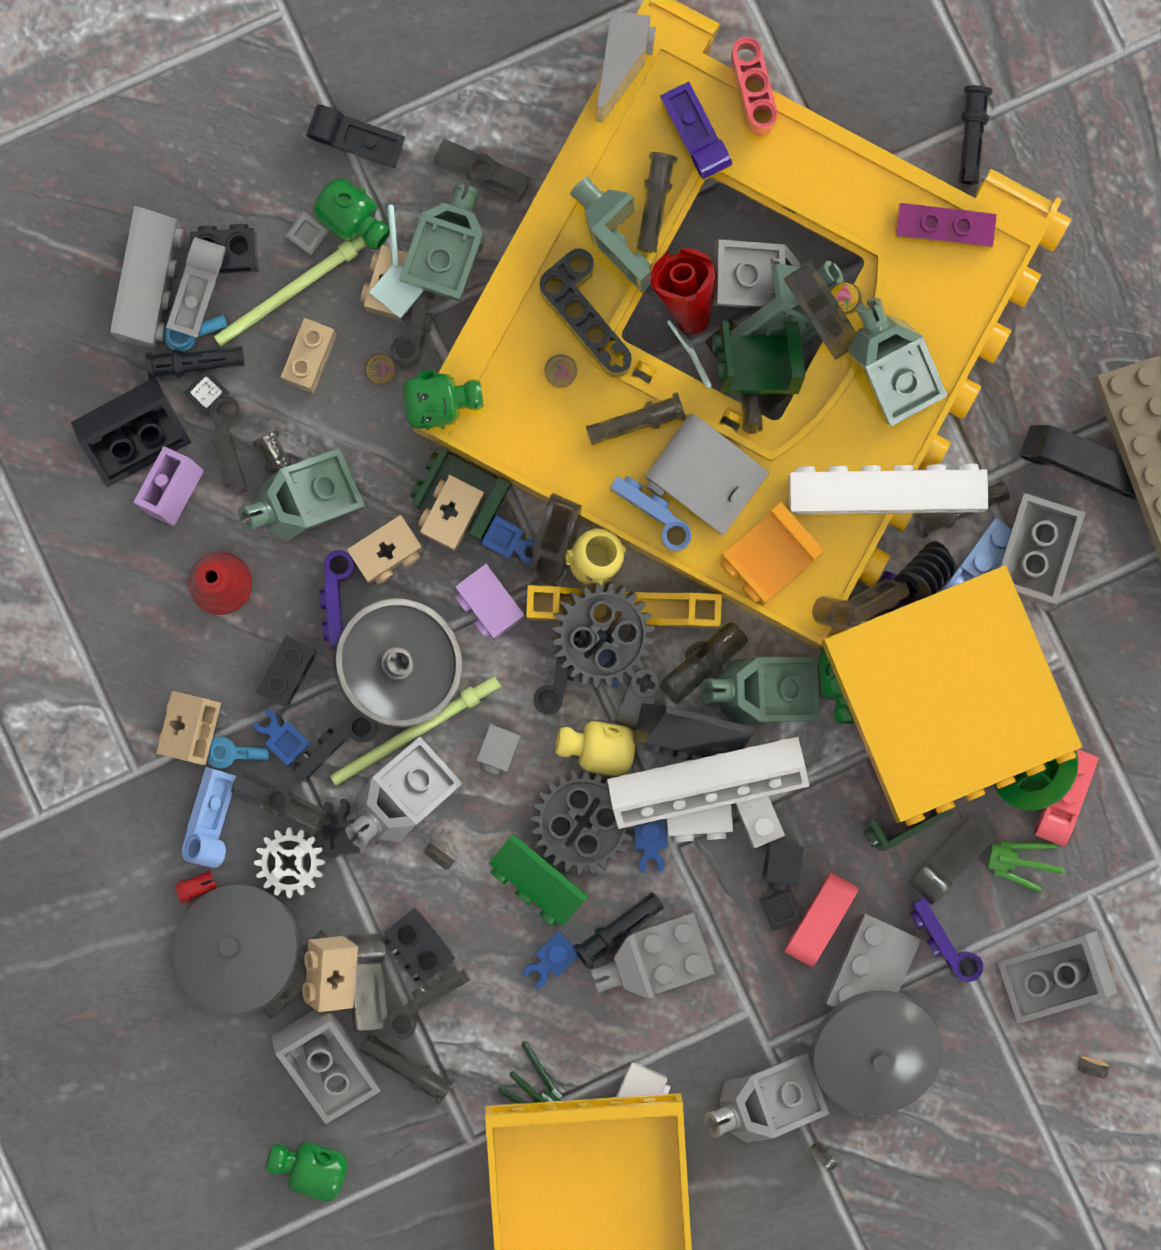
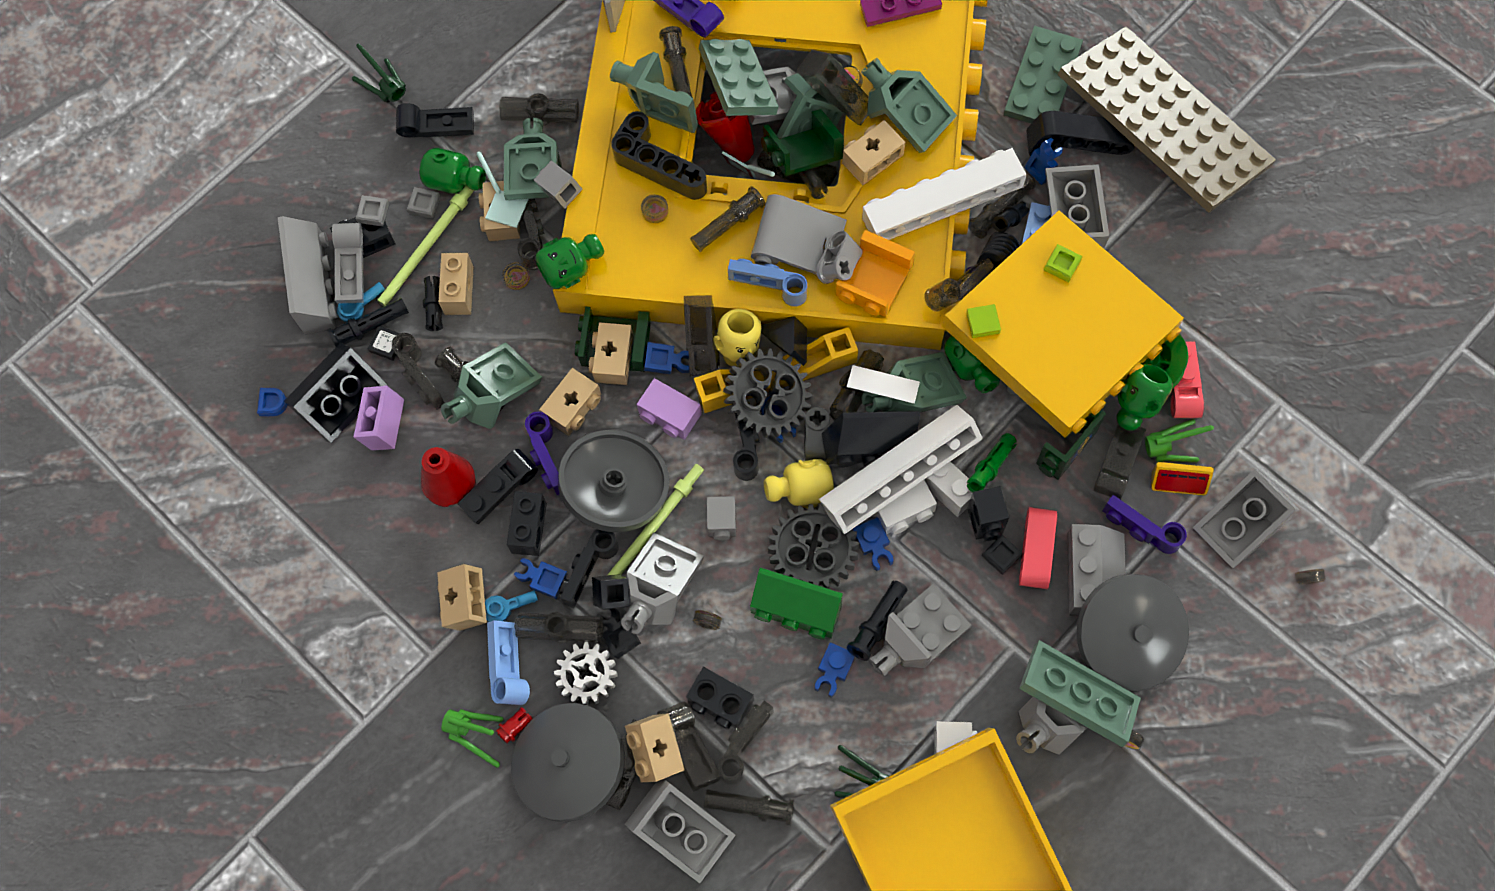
camera: 15 degrees left, 15 degrees down
(57, 412) = (271, 402): none -> blue tile
(137, 861) = (459, 723): none -> bright green plant
(244, 231) = (372, 210): none -> light grey tile
(271, 614) = (497, 485): none -> black plate
(274, 366) = (431, 304): none -> black pin
(320, 68) = (390, 87): none -> dark green plant
(347, 788) = (610, 591): none -> black brick
(462, 298) = (558, 184): none -> light grey brick
(651, 580) = (789, 336): none -> black slope
(717, 247) = (738, 77): none -> sand green plate
(729, 679) = (883, 384): none -> white sticker
(741, 520) = (838, 258): none -> light grey piece
(790, 1097) = (1080, 693): none -> sand green plate
(801, 817) = (988, 468): none -> green pin
(851, 405) = (873, 152): none -> tan brick
(862, 665) = (983, 321): none -> lime tile
(962, 530) = (1010, 217): none -> black axle
(979, 632) = (1063, 263): none -> lime tile
(1004, 808) = (1143, 396): none -> green piece
(1009, 906) = (1181, 478): none -> slope
(1028, 477) = (1041, 159): none -> blue plate
(1094, 345) = (1037, 81): none -> sand green plate

